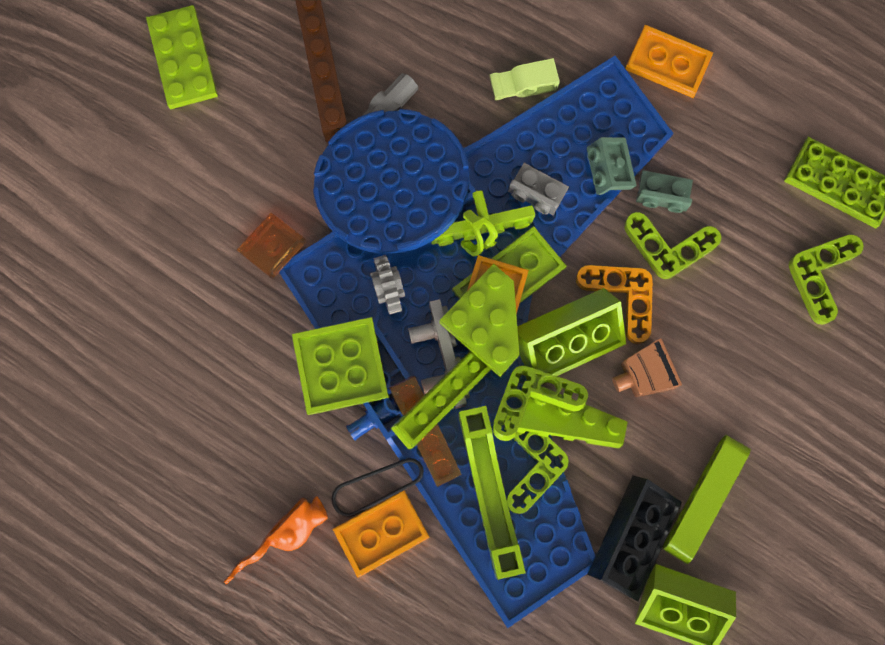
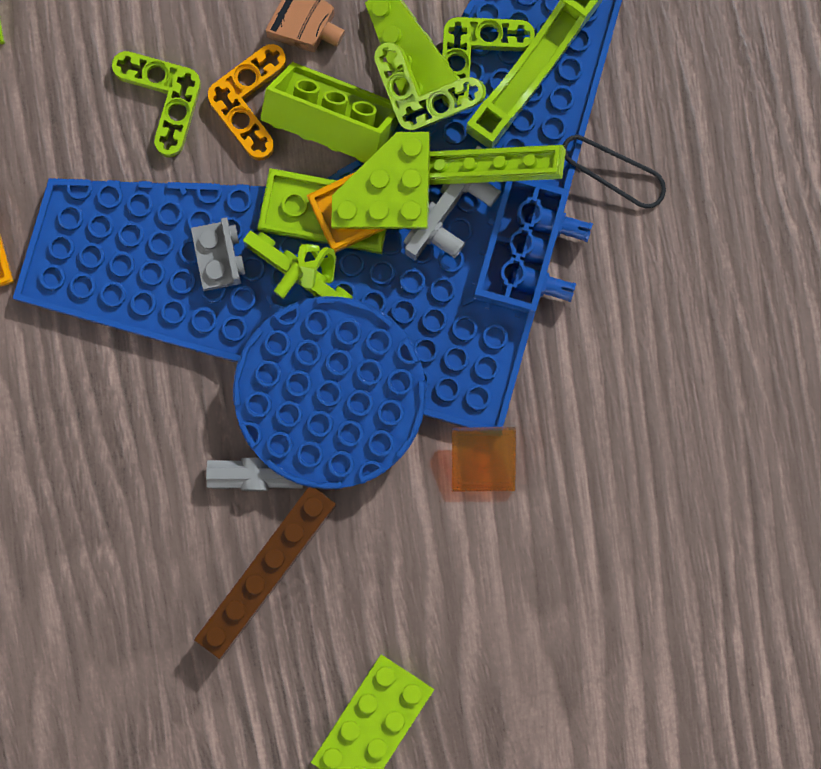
camera: 140 degrees left, 5 degrees up
(288, 532) = (721, 214): orange animal -> none
(340, 366) = (542, 283): lime plate -> none
(380, 533) = (650, 134): light orange tile -> none
(387, 284) = (433, 305): light grey gear -> none
(433, 446) = (545, 130): clear orange plate -> none
(526, 80) = (112, 364): yellowish green piece -> none
(611, 165) = (136, 206): sand green bracket -> none
(664, 191) = (112, 143): sand green bracket -> none

